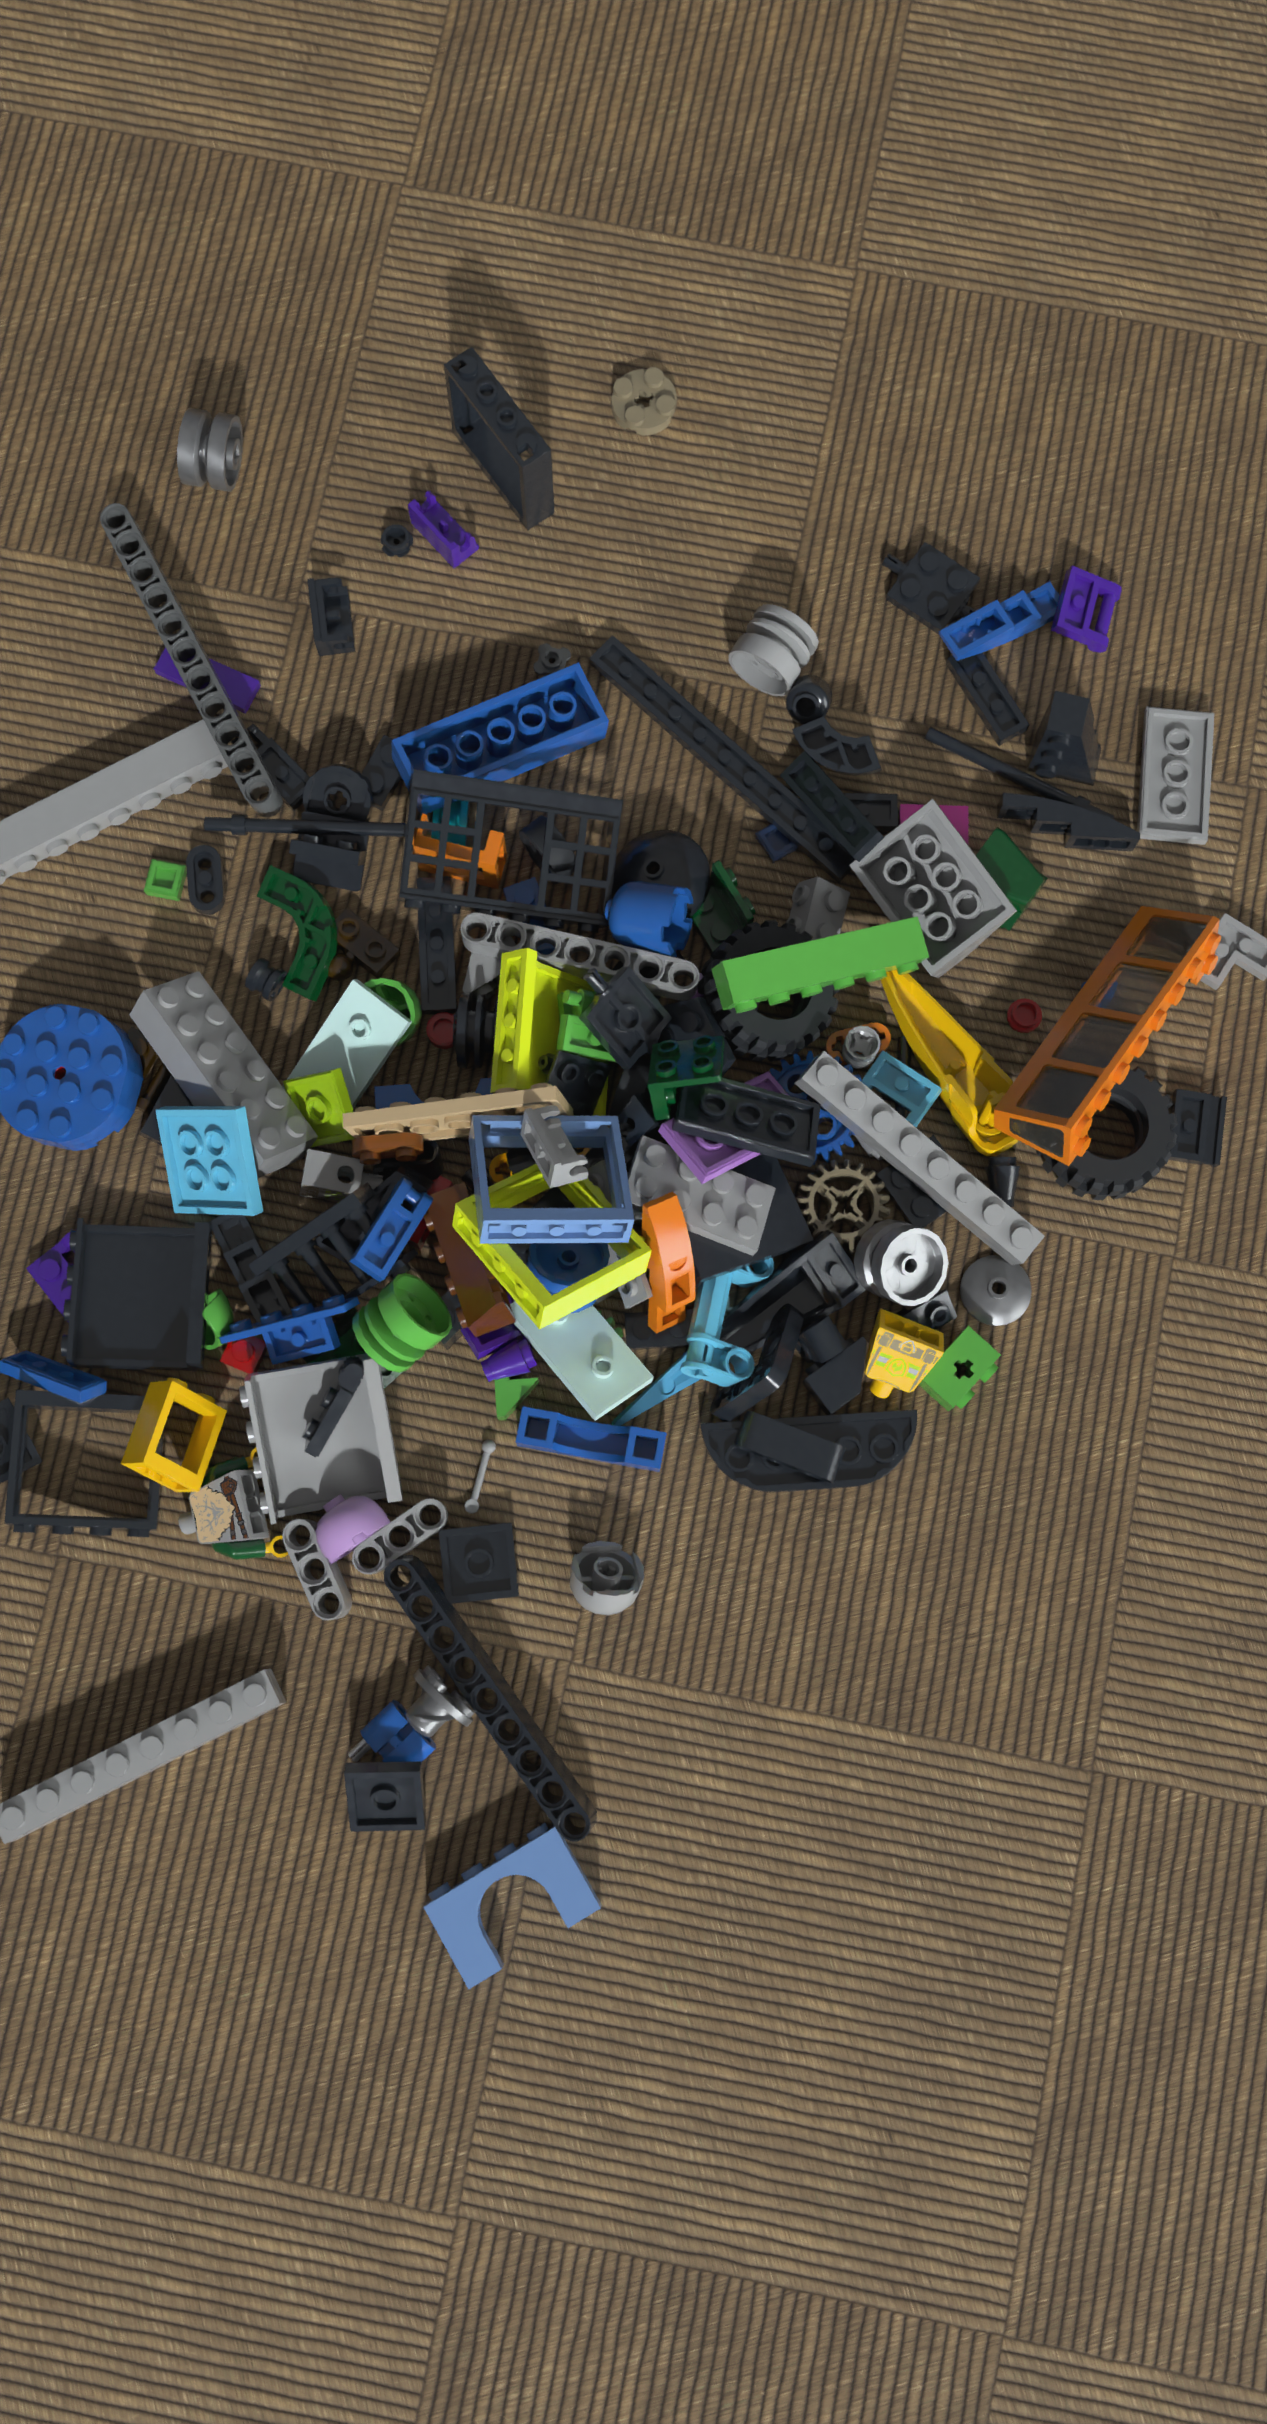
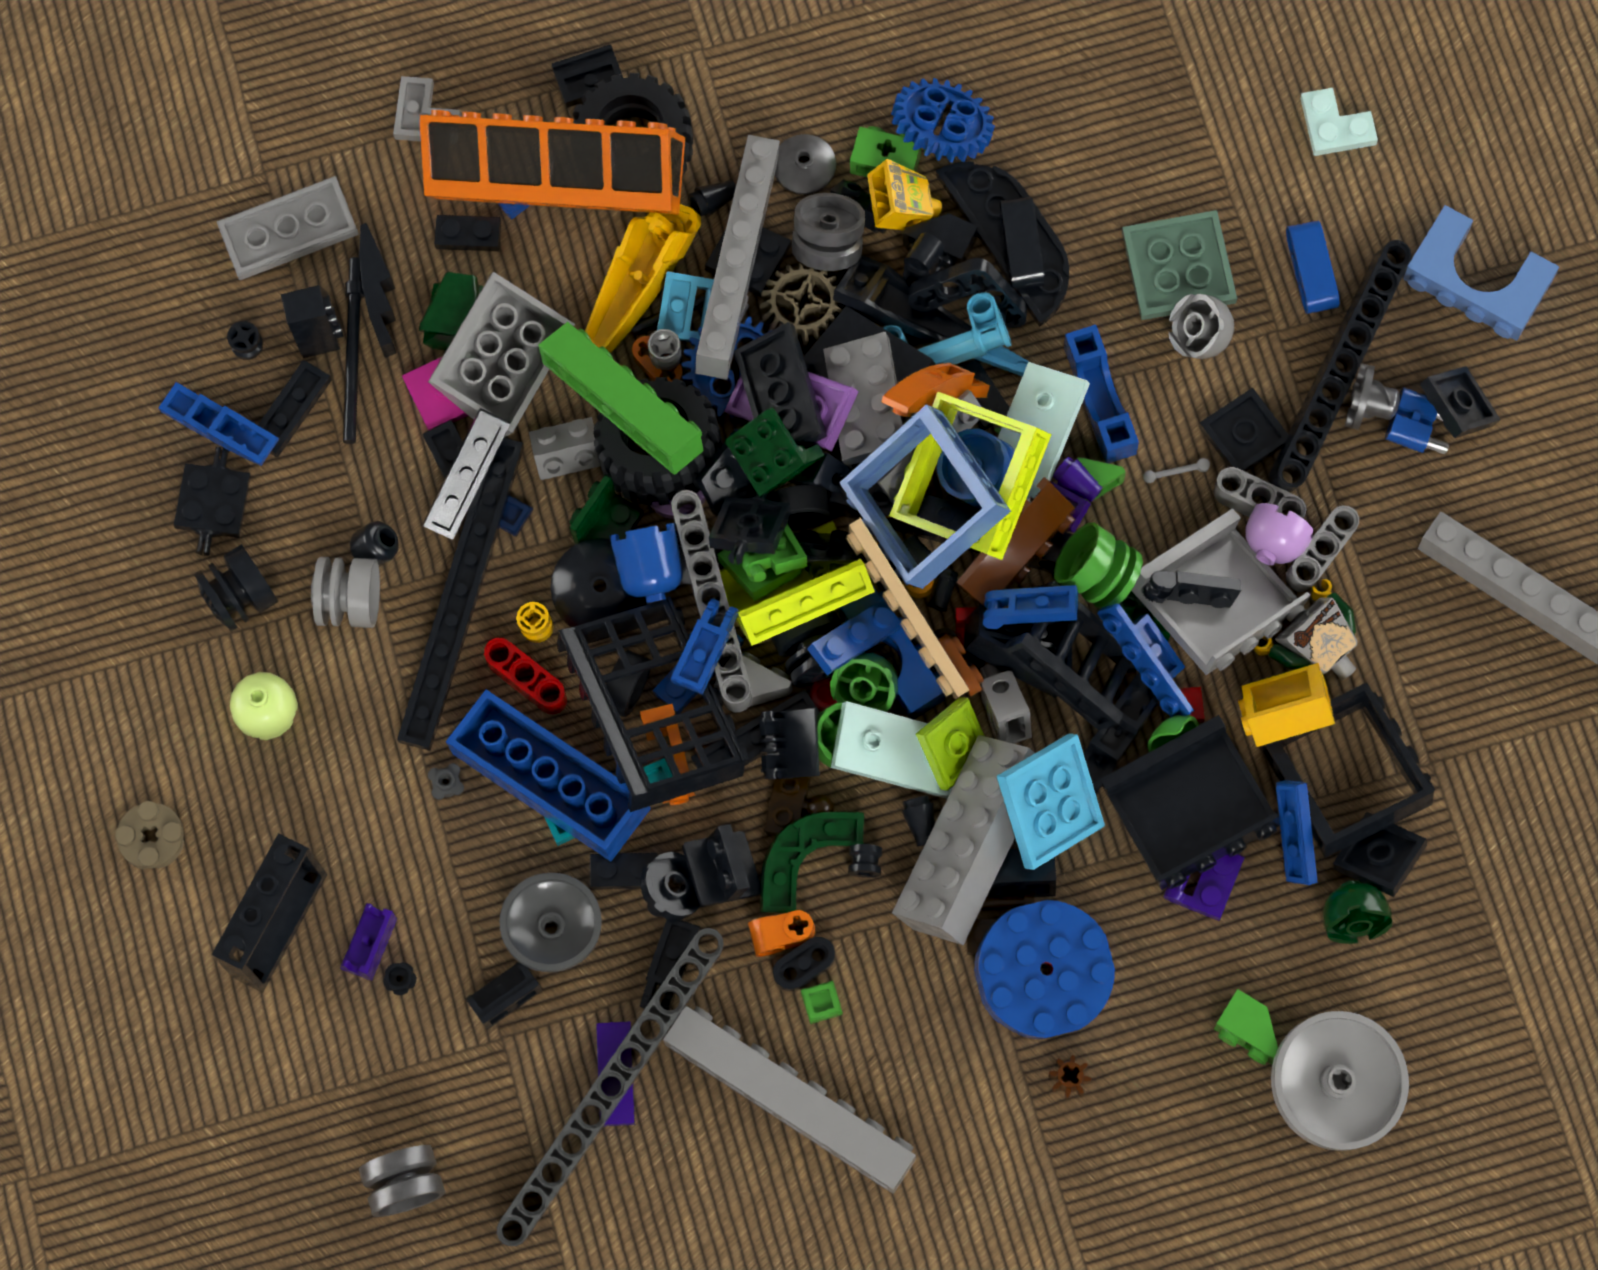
camera: 110 degrees left, 5 degrees down
(240, 825) = (742, 950): black bar -> none
(246, 870) = (774, 933): none -> orange piece
(278, 1049) = (919, 817): none -> black cone
(360, 658) = (548, 901): none -> dark grey dish
(405, 955) = (789, 744): none -> black hinge
(425, 1061) = (866, 682): none -> bright green cylinder
(464, 1052) = (854, 637): none -> blue plate
(527, 914) = (704, 649): none -> blue hinge
(551, 1147) = (902, 501): light grey hinge -> none
(613, 1733) = (1312, 267): none -> blue beam
(619, 759) = (518, 662): none -> red beam
(660, 812) = (536, 629): none -> yellow wheel
(690, 1599) = (1178, 260): none -> sand green plate
(711, 543) = (263, 705): none -> yellowish green cylinder
(755, 1841) = (1333, 132): none -> light aqua plate
(830, 559) = (235, 588): none -> black wheel
(836, 751) = (411, 496): black brick -> none
(940, 1463) = (966, 127): none -> blue gear
(1024, 1015) = (563, 247): red plate -> none
(1077, 607) = (171, 372): dark purple plate -> none
(1082, 678) = (241, 333): none -> black wheel
(1086, 937) = (467, 233): none -> black plate

